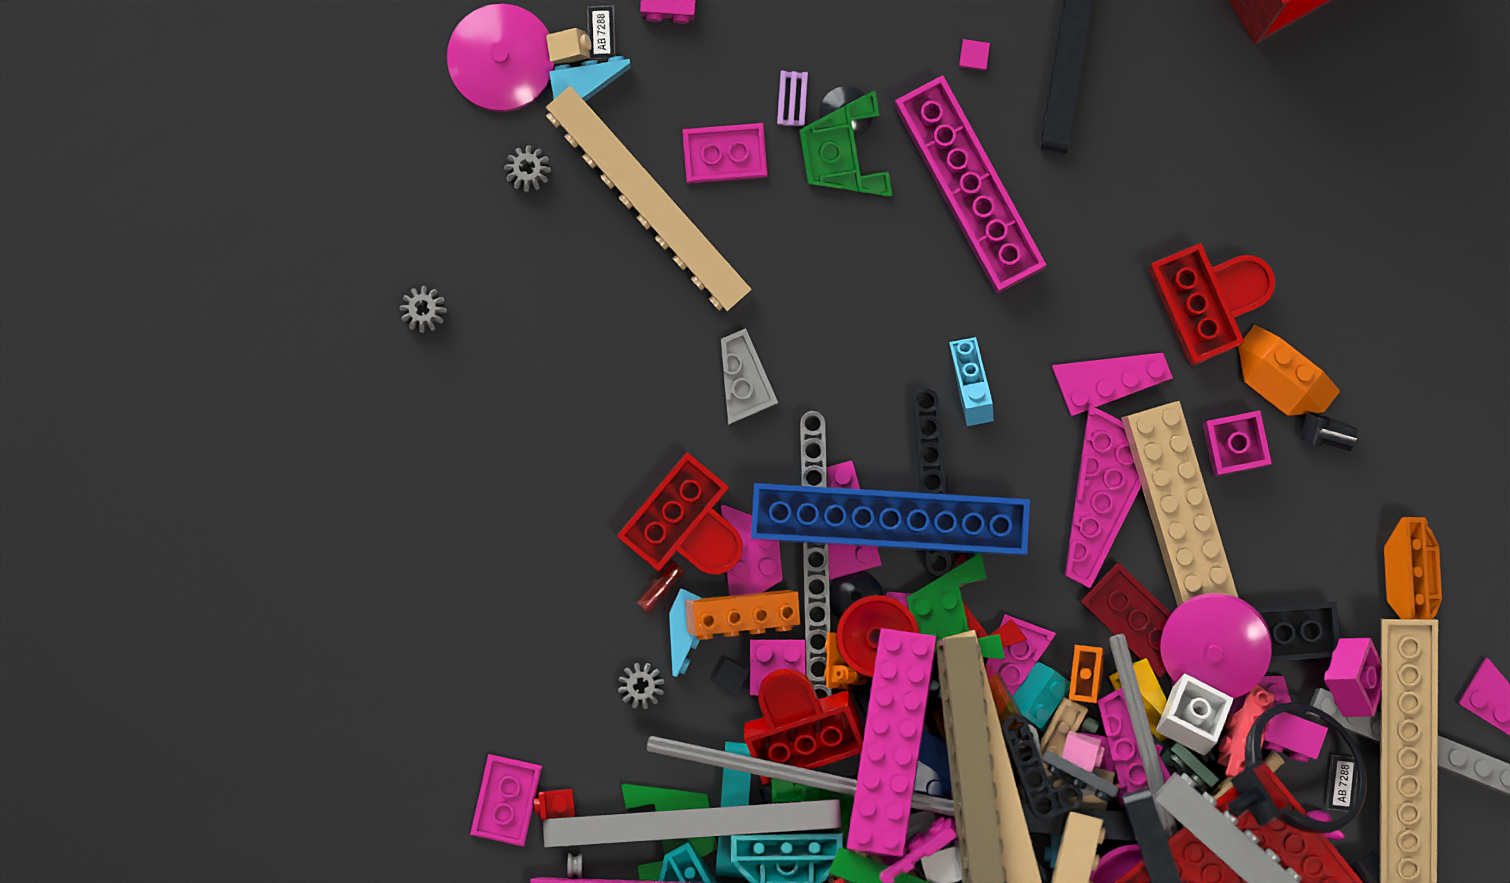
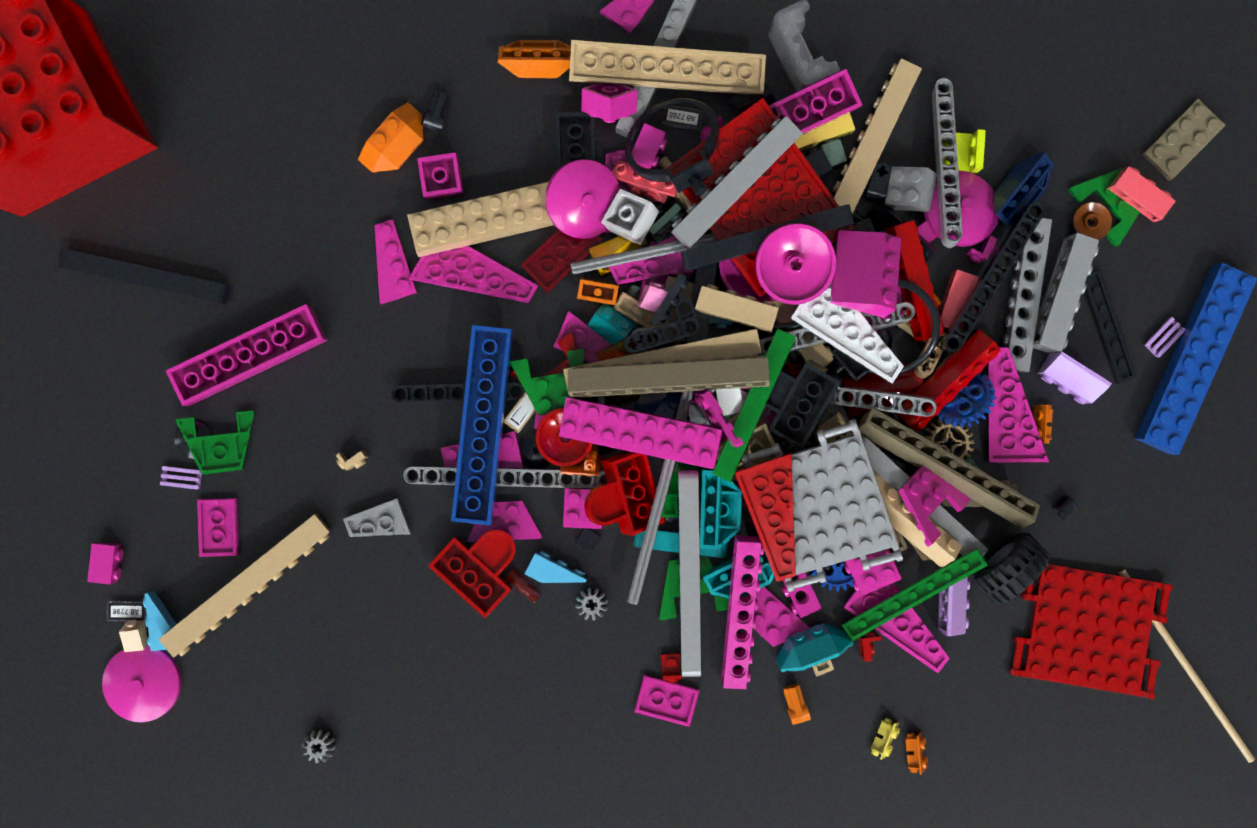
camera: 90 degrees left, 5 degrees up
(531, 160) = (221, 660): light grey gear -> none
(574, 865) = (714, 655): light grey bush -> none
(742, 613) = (544, 531): orange brick -> none
(828, 343) = (356, 461): none -> tan bracket
(906, 571) = (520, 414): none -> white slope
(972, 382) = (389, 360): medium azure slope -> none
(974, 55) = (155, 347): dark pink tile -> none
(1208, 298) = (336, 191): red brick -> none

